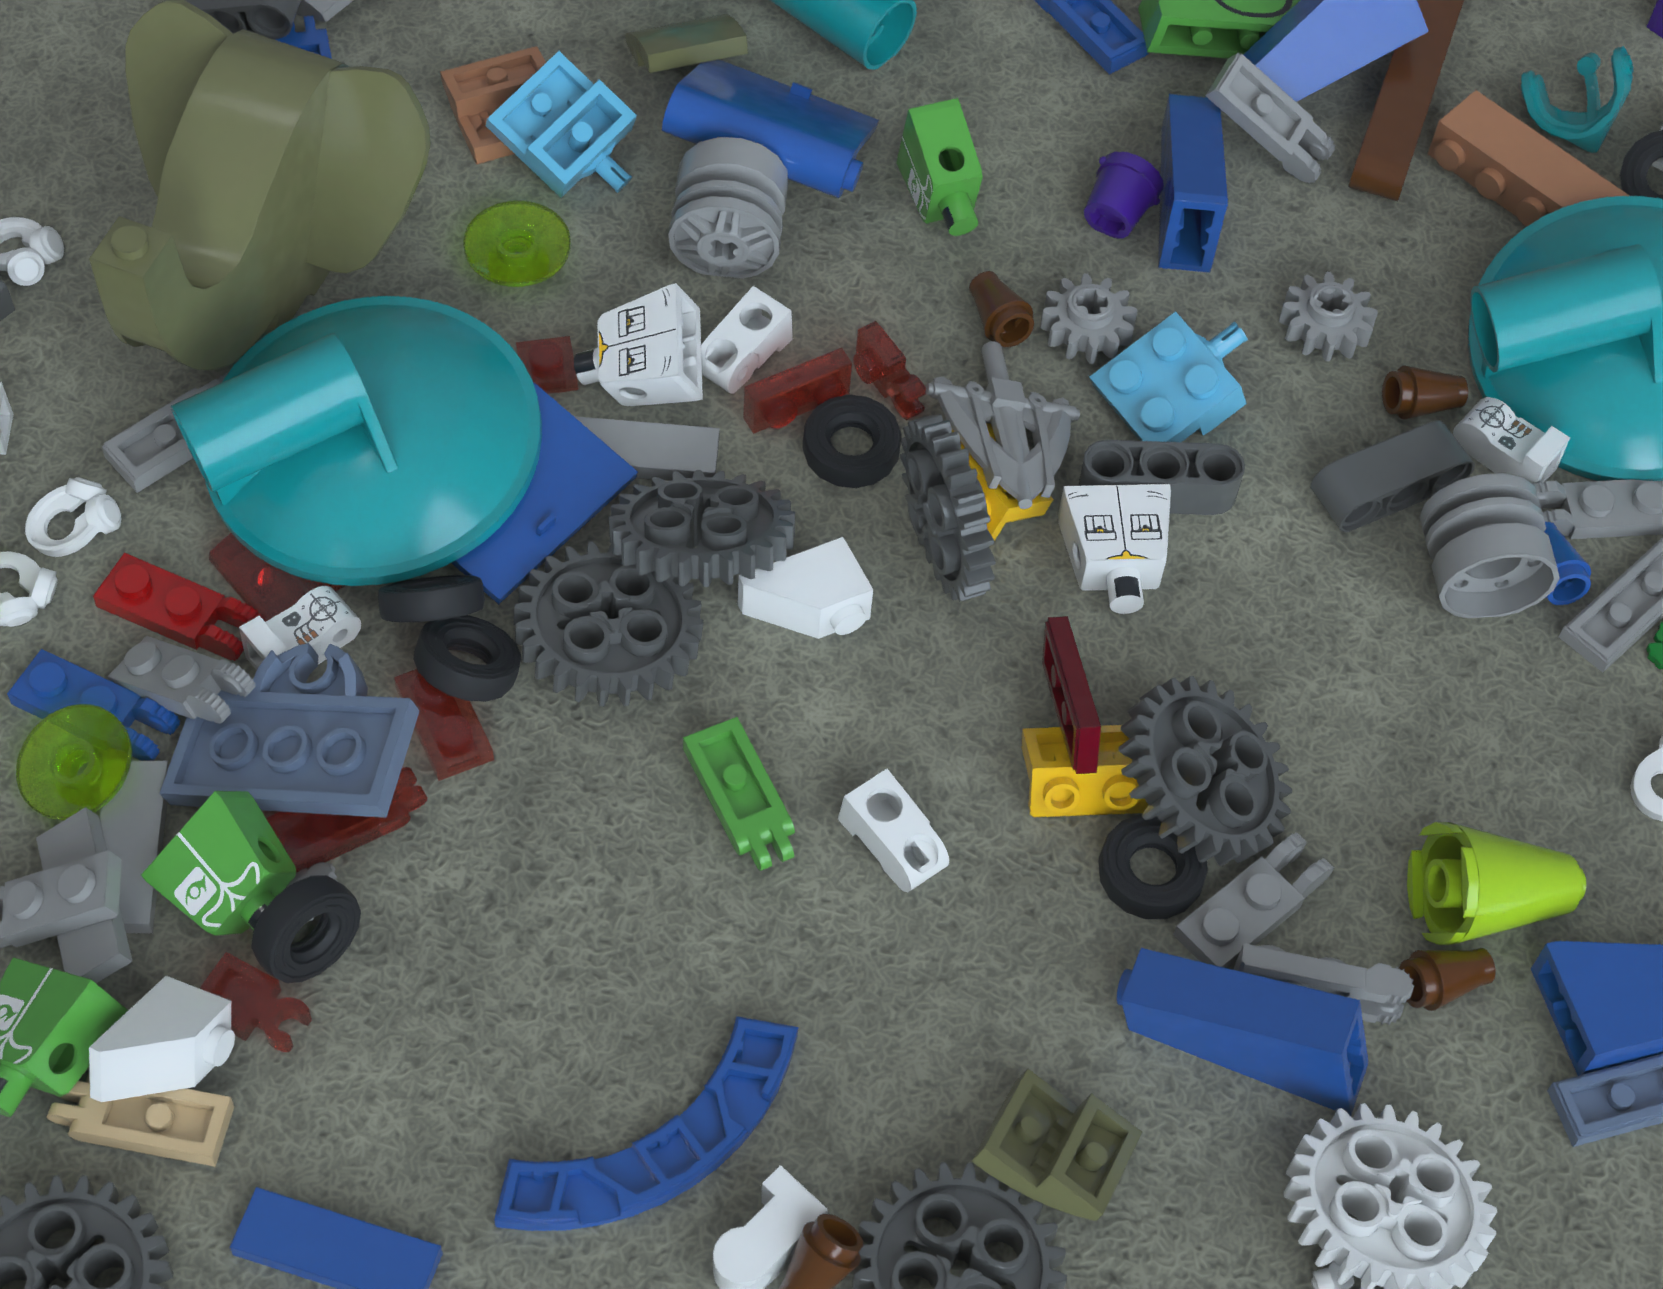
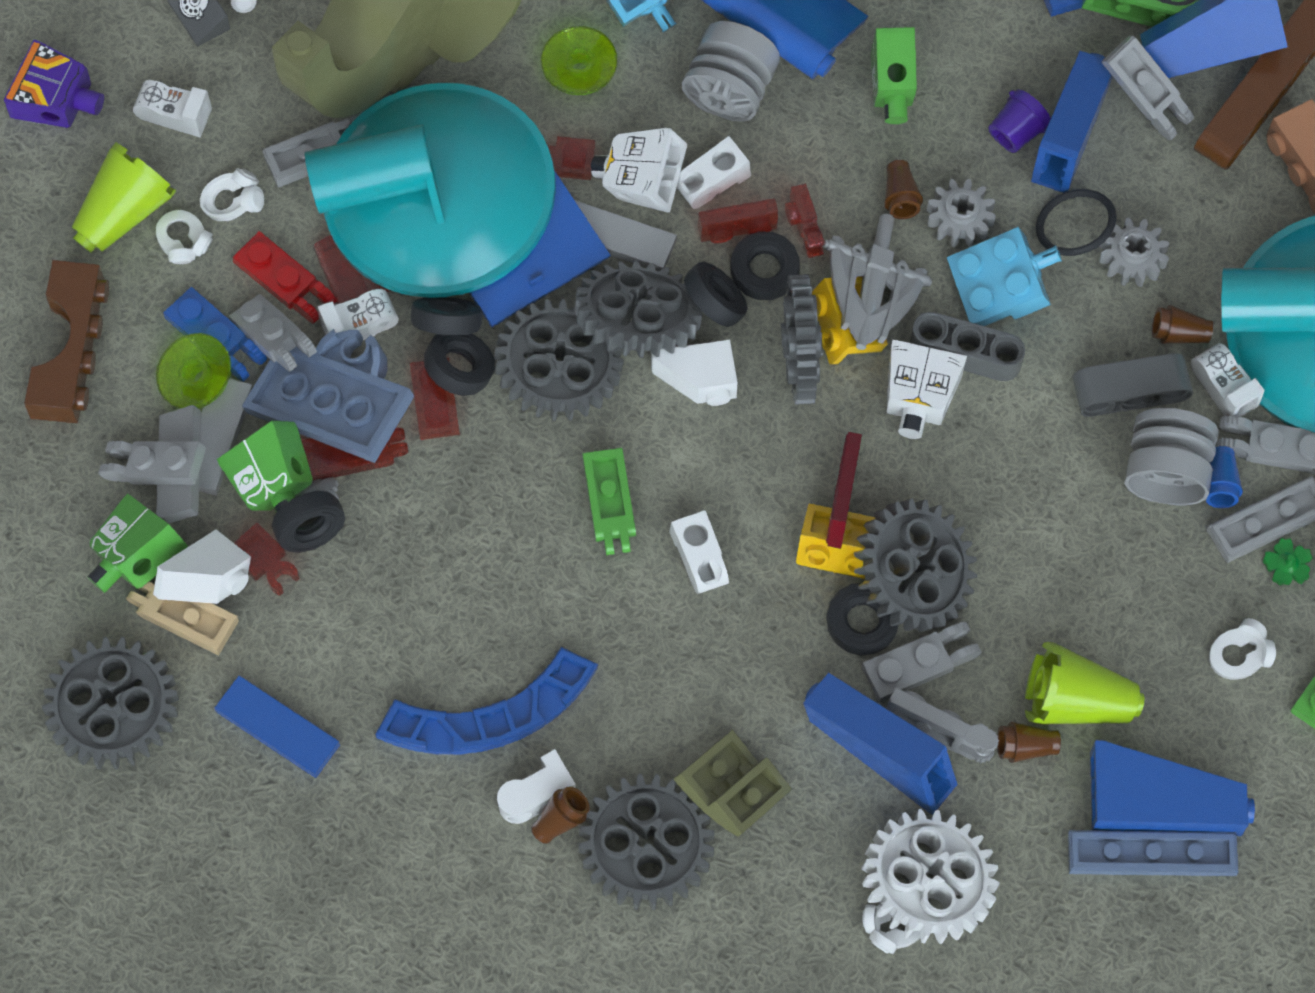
camera: 20 degrees right, 10 degrees up
(801, 485) = (715, 294): none -> black tyre
(1245, 260) = (1072, 194): none -> black tyre

